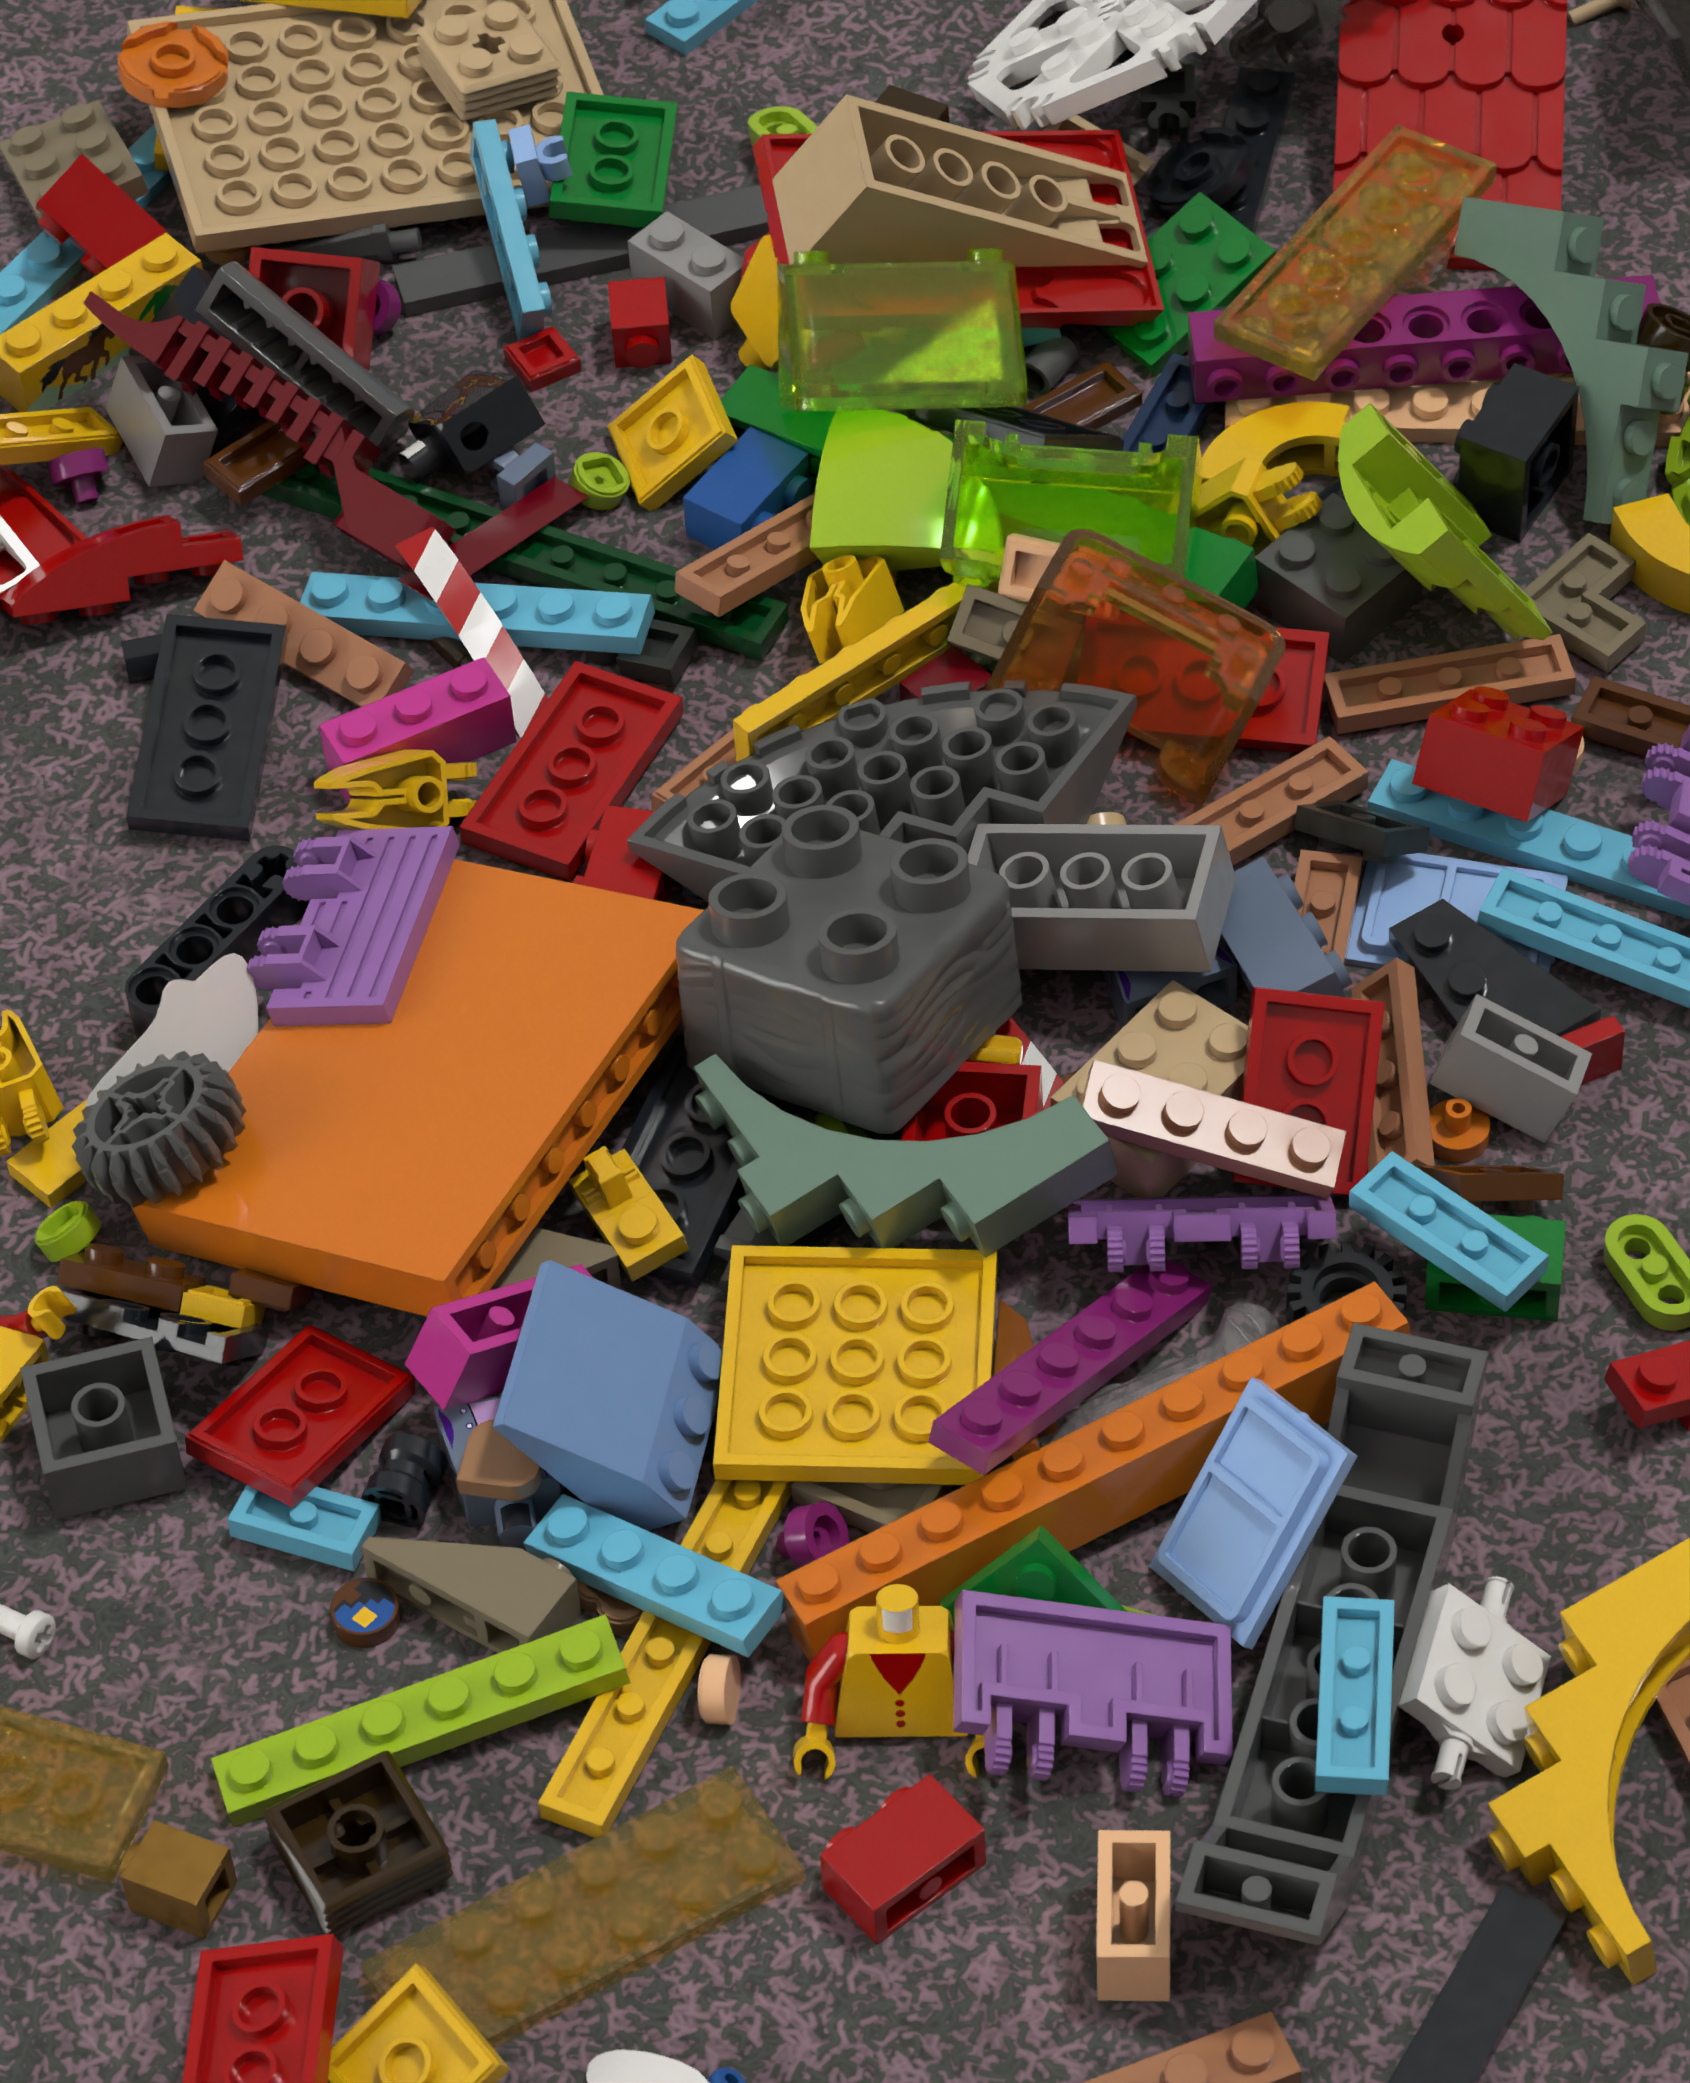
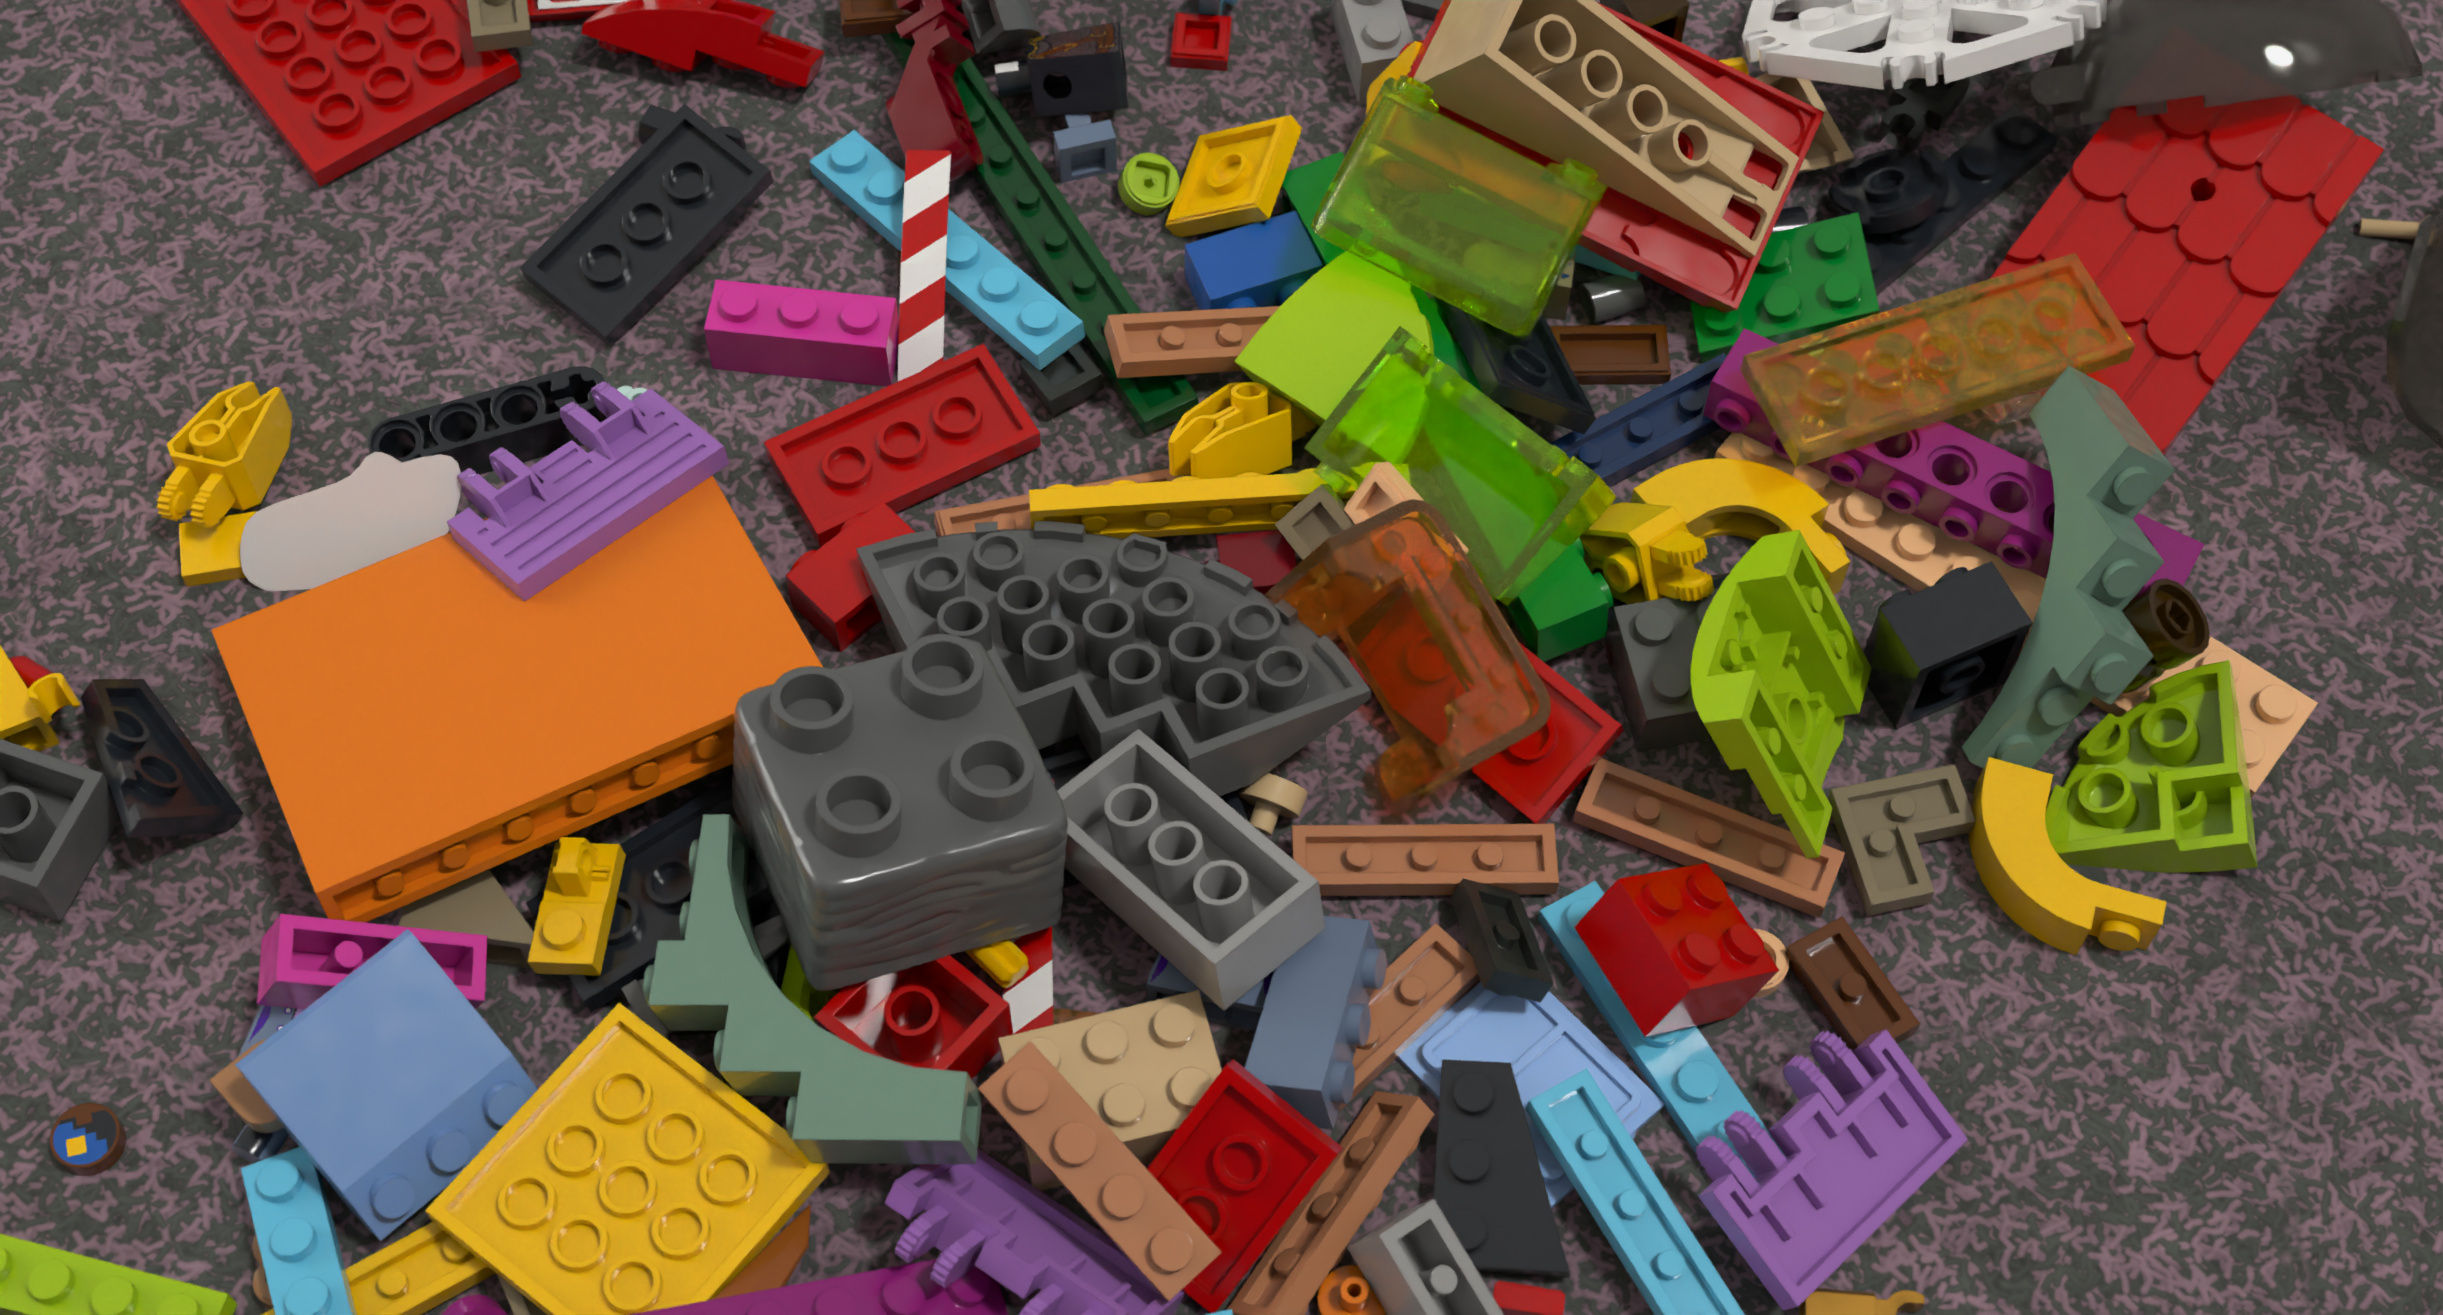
camera: 30 degrees right, 10 degrees up
(67, 1230) = (167, 620): lime tile -> none
(106, 1272) = (171, 700): reddish brown plate -> none
(159, 1129) = (269, 581): dark grey gear -> none
(220, 1308) = (216, 773): yellow tile -> none
(269, 1290) = (251, 780): reddish brown tile -> none
(300, 1415) = (179, 916): red tile -> none
(314, 643) = (799, 195): nougat plate -> none
(319, 1528) = (109, 1019): medium azure plate -> none
(405, 791) = (727, 382): yellow hinge -> none
(406, 1475) = (207, 1037): black wheel -> none
(479, 1590) = (183, 1207): dark tan slope -> none
(508, 528) = (1030, 186): dark red sticker -> none
(639, 322) = (1298, 55): red brick -> none

